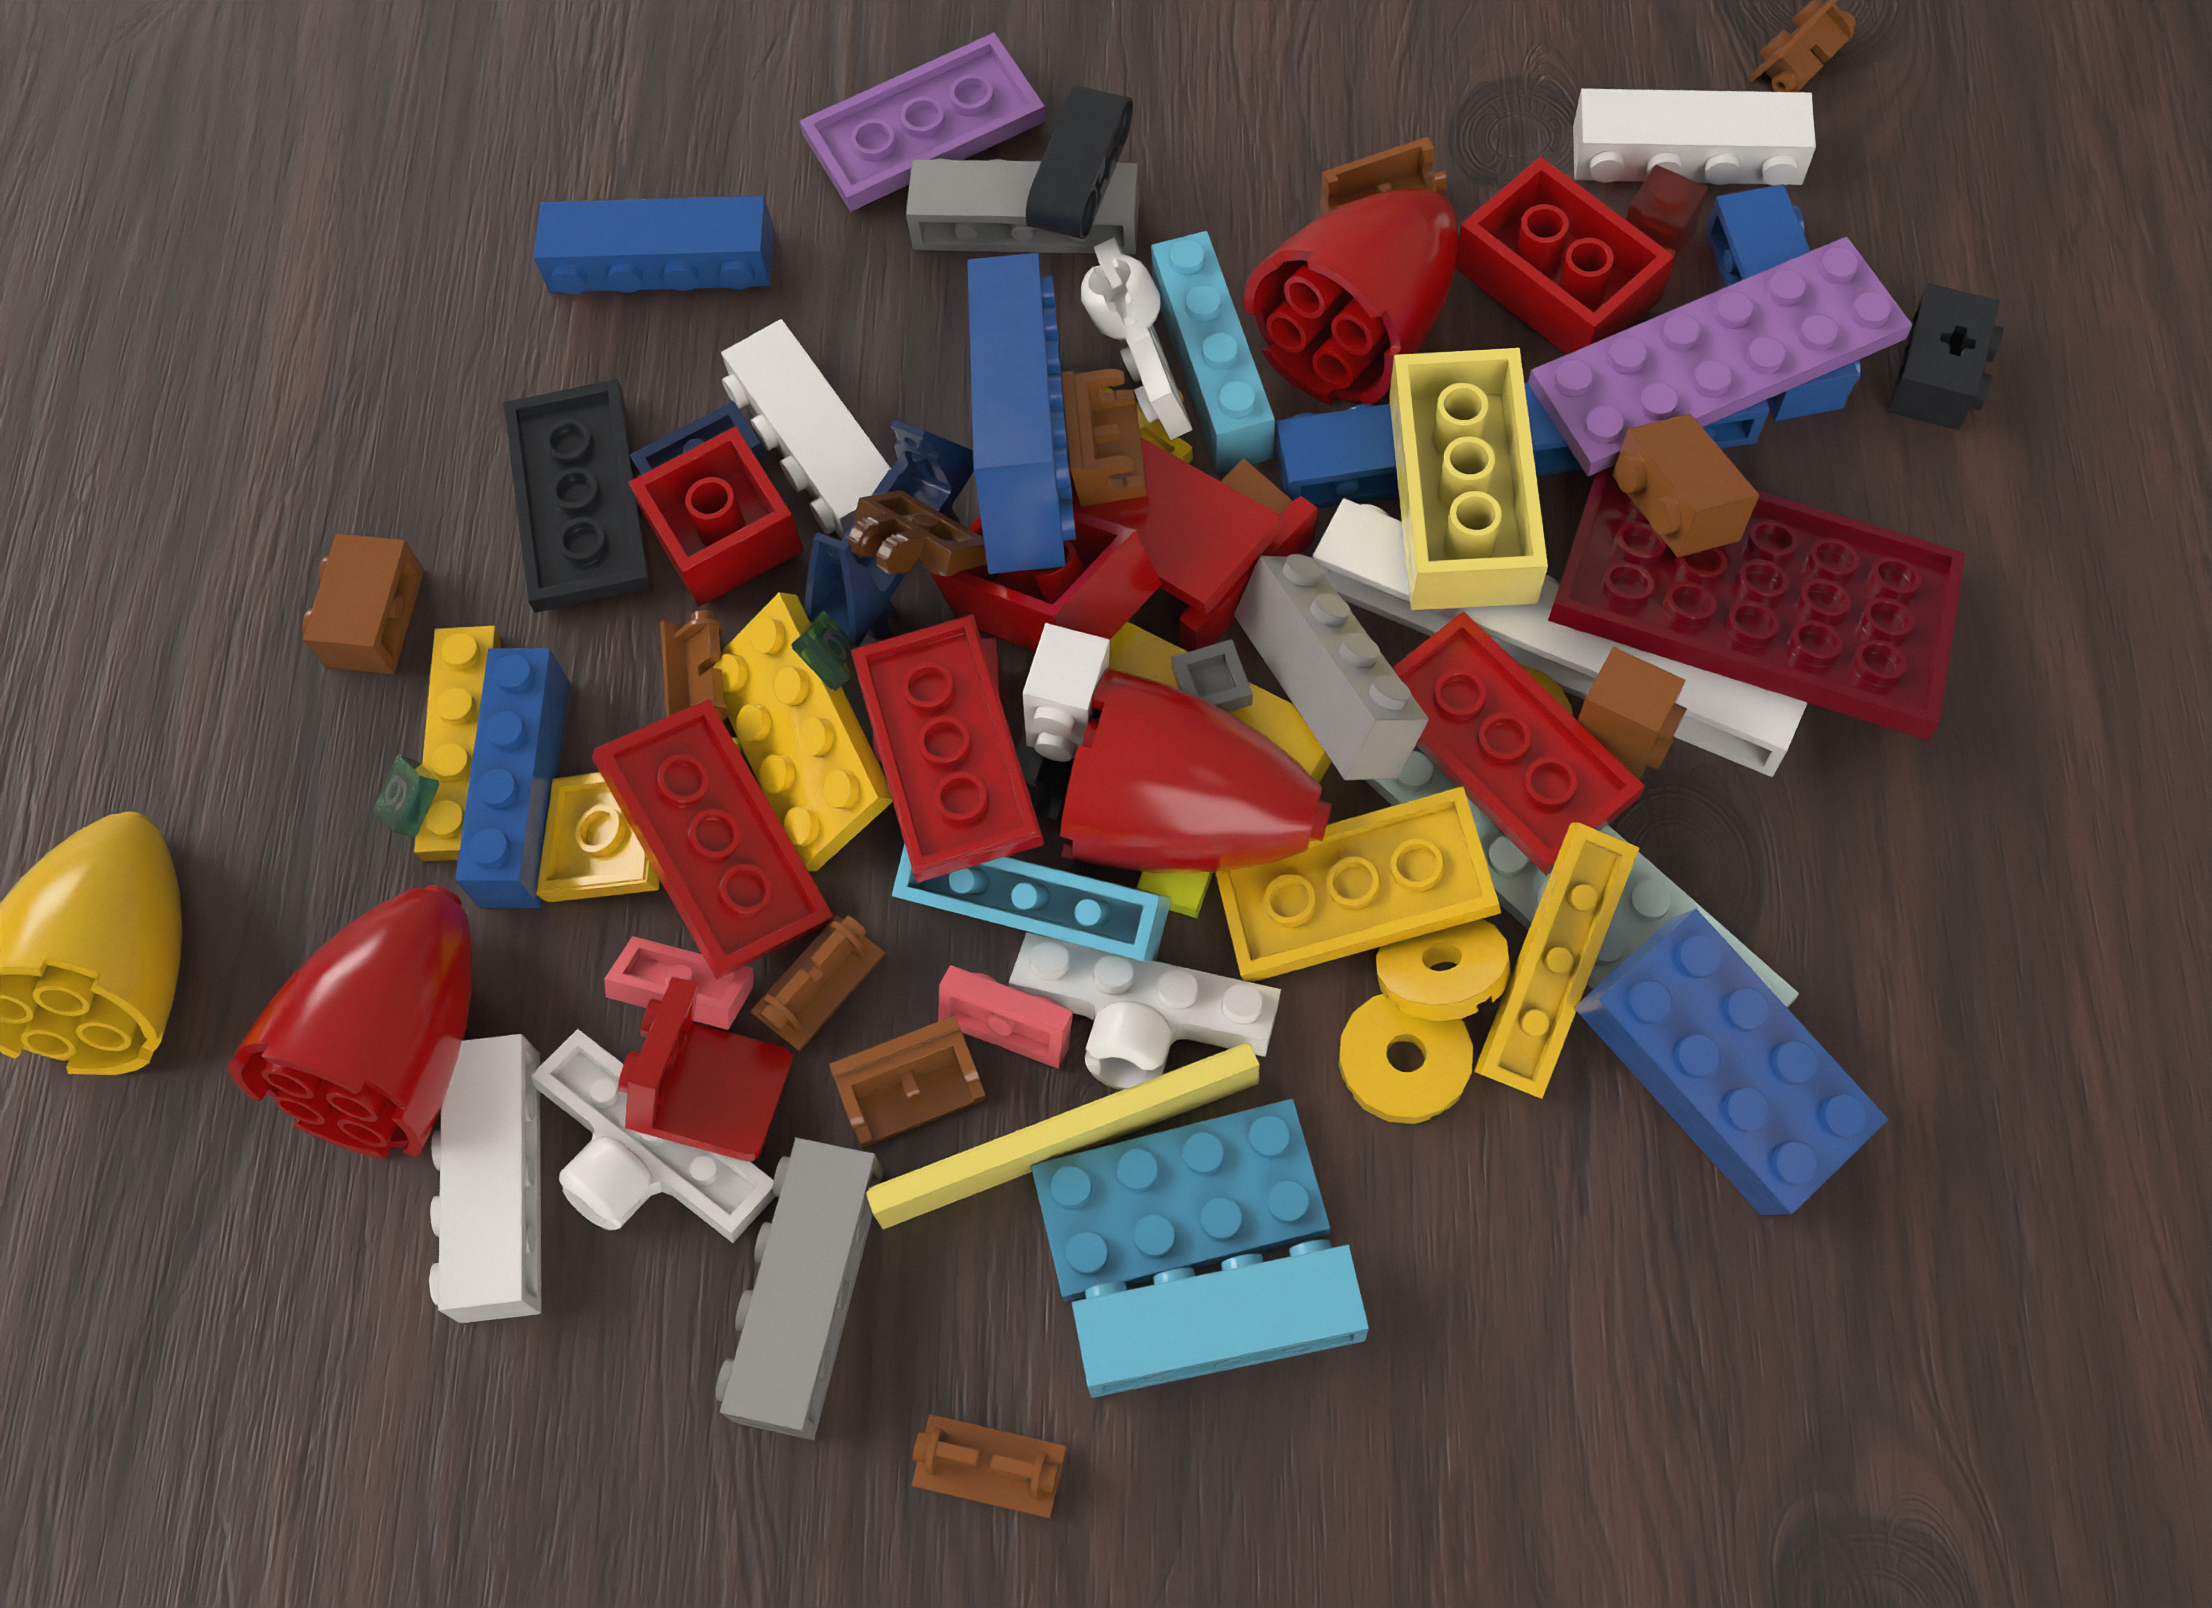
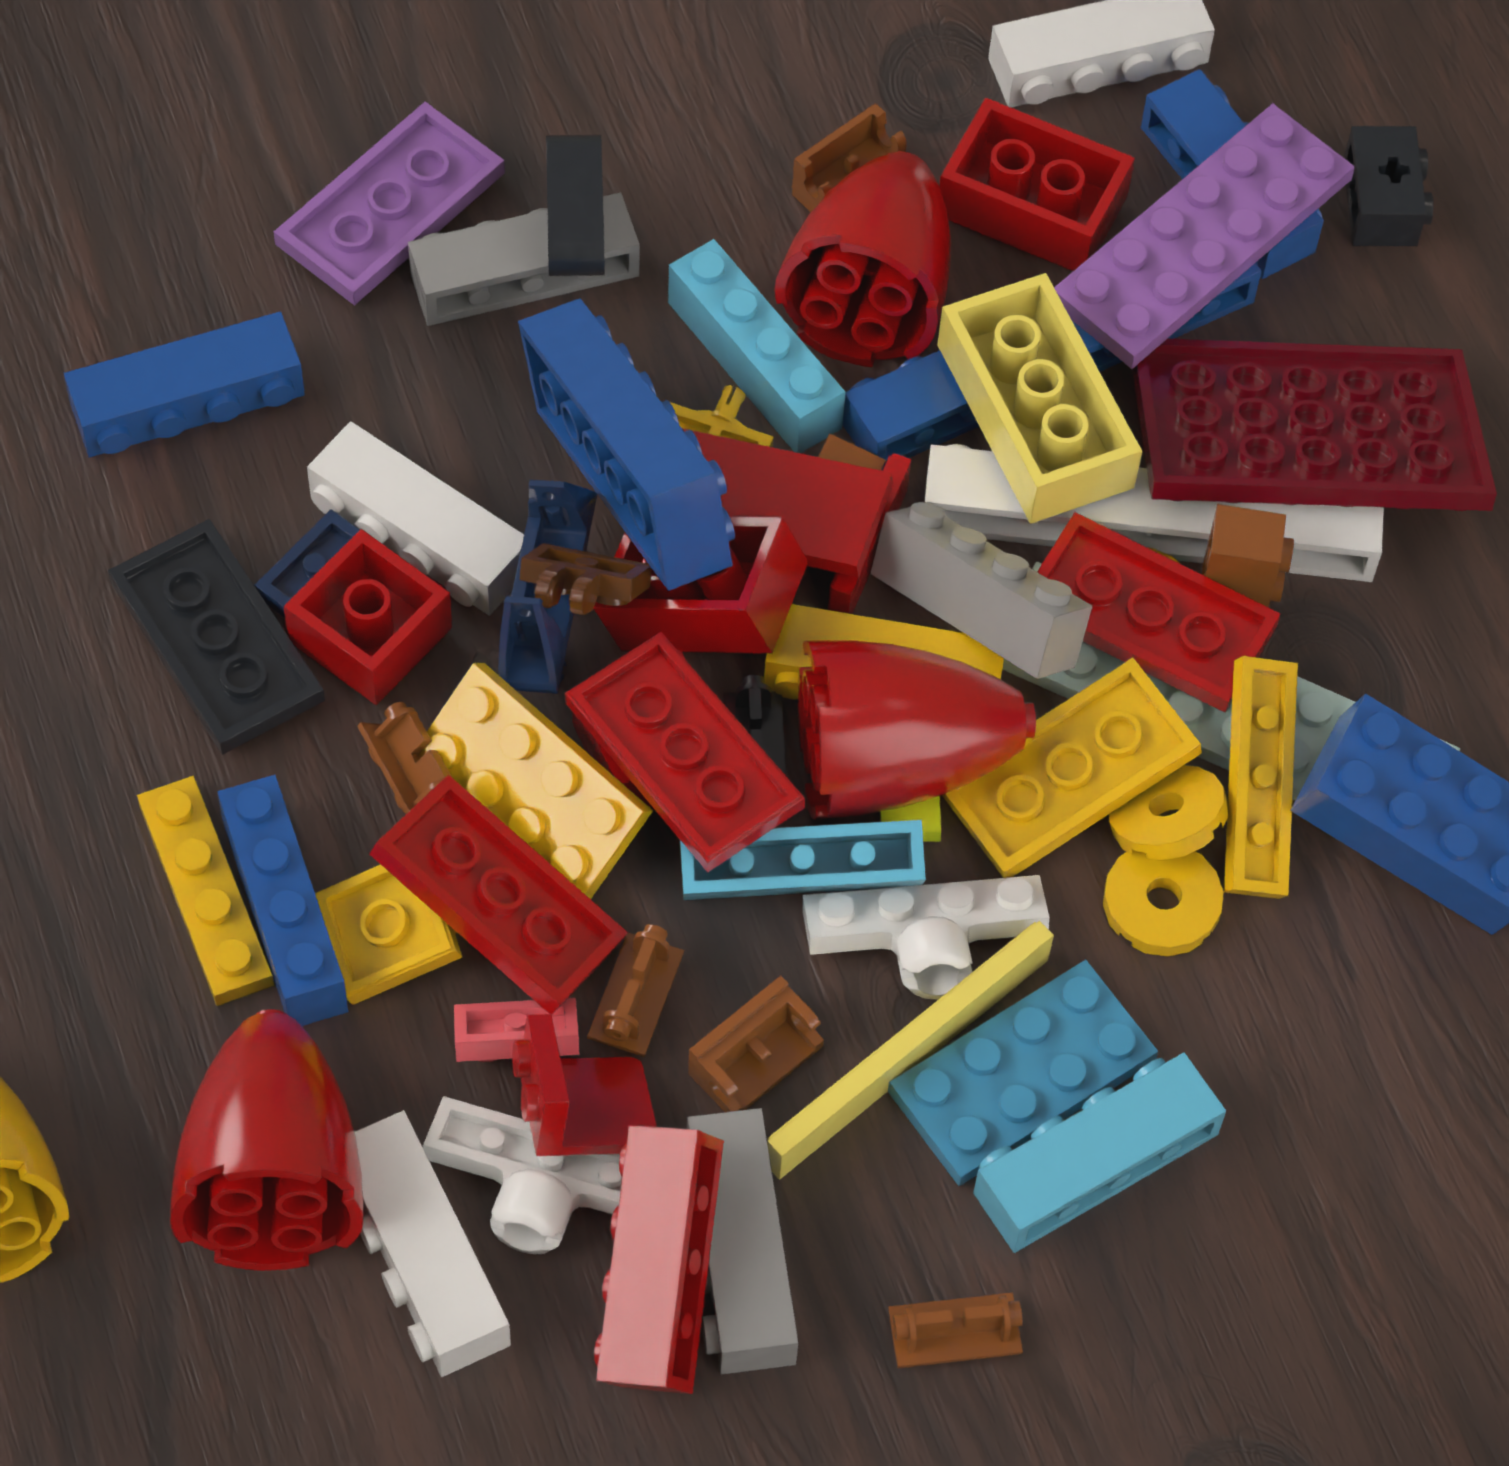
camera: 30 degrees left, 5 degrees down
(363, 603) = (57, 790): dark orange brick -> none
(406, 796) = (187, 947): clear green tile -> none
(695, 1289) = (659, 1259): none -> brick
(826, 651) = (541, 701): clear green tile -> none
(1006, 1016) = (819, 967): coral plate -> none
(1062, 690) = (776, 674): white brick -> none
(1103, 437) = (715, 441): dark orange hinge -> none
(1124, 307) = (678, 327): white plate -> none
(1214, 676) = (888, 622): dark grey plate -> none
(1668, 209) = (1107, 113): clear red brick -> none
(1684, 485) = (1219, 353): dark orange brick -> none

